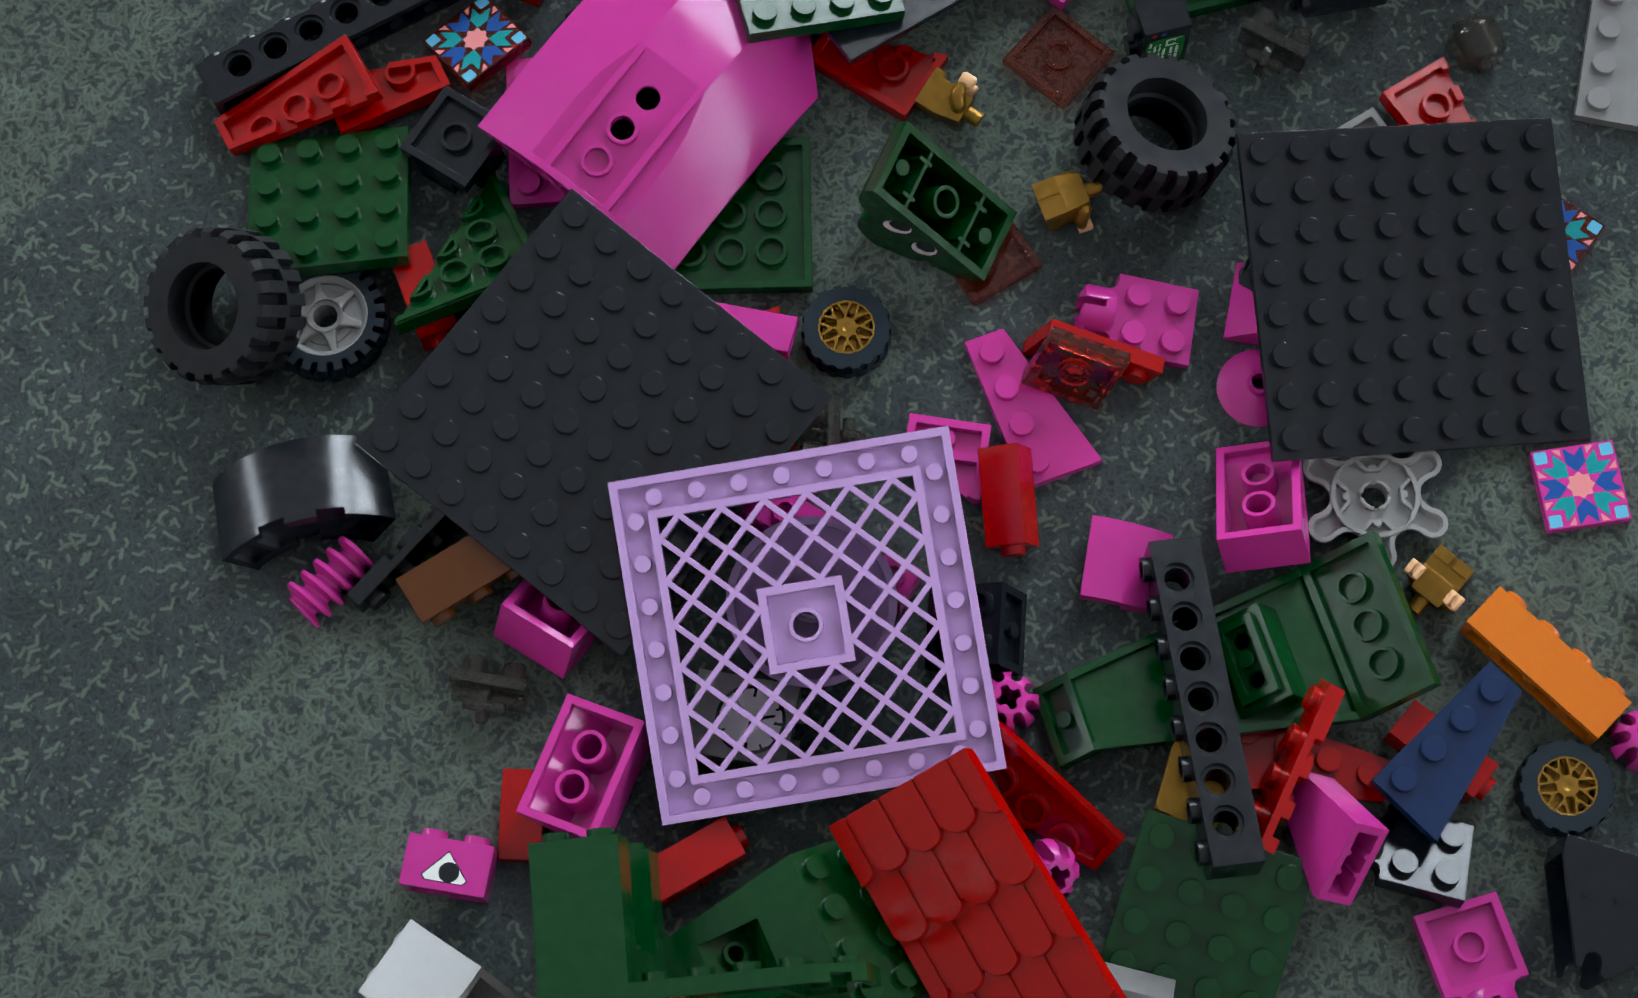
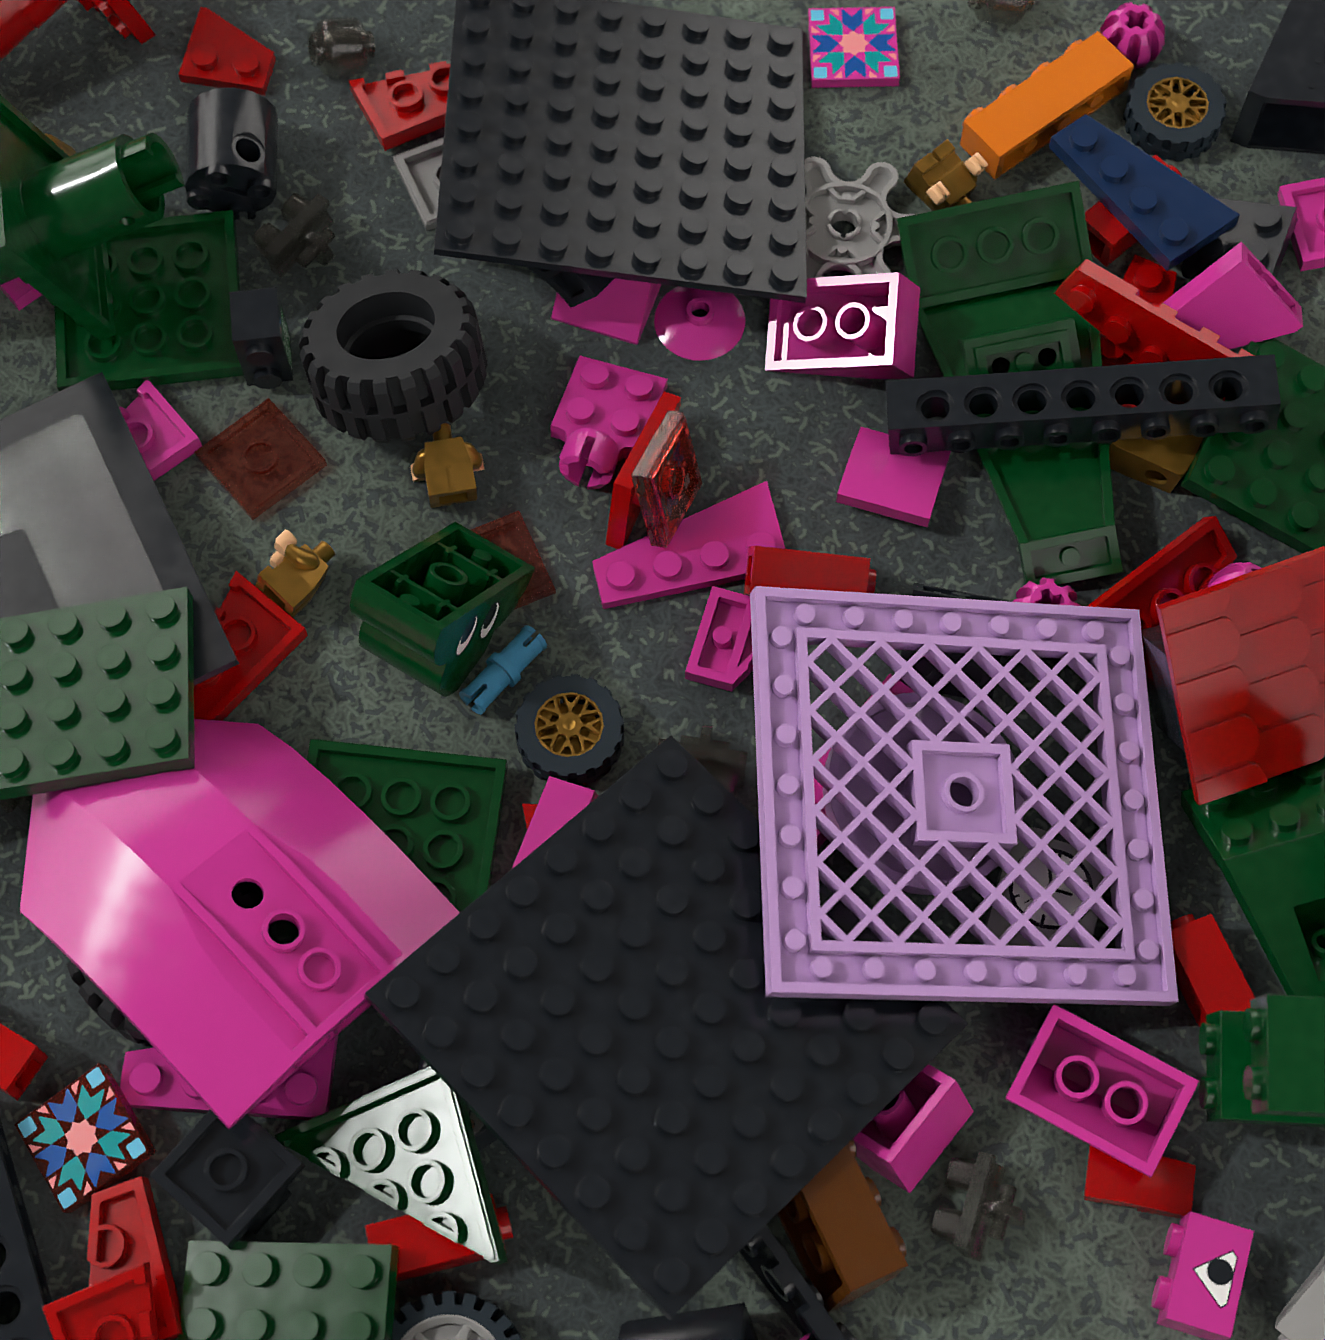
camera: 85 degrees left, 5 degrees down
(893, 273) = (503, 669): none -> dark azure pin

